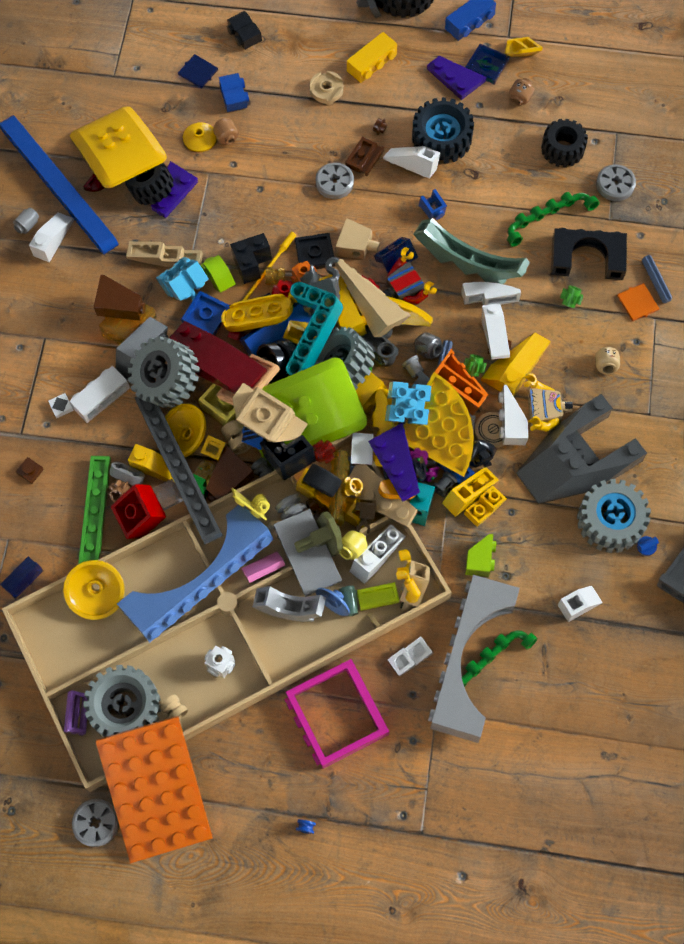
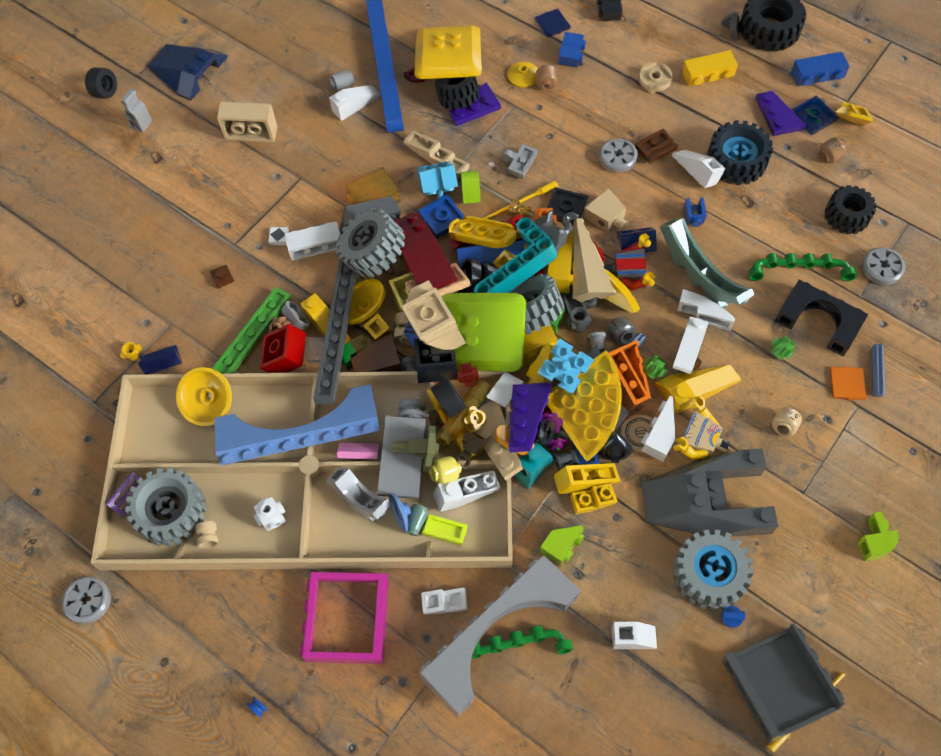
camera: 30 degrees right, 5 degrees down
(117, 300) = (370, 170): reddish brown slope -> none
(154, 789) = (146, 597): orange plate -> none
(249, 225) = (520, 161): none -> light grey plate
(249, 254) = (507, 182): black brick -> none
(257, 506) = (378, 394): light yellow hinge -> none
(380, 126) = (684, 127): reddish brown plate -> none
(415, 581) = (482, 532): torso -> none

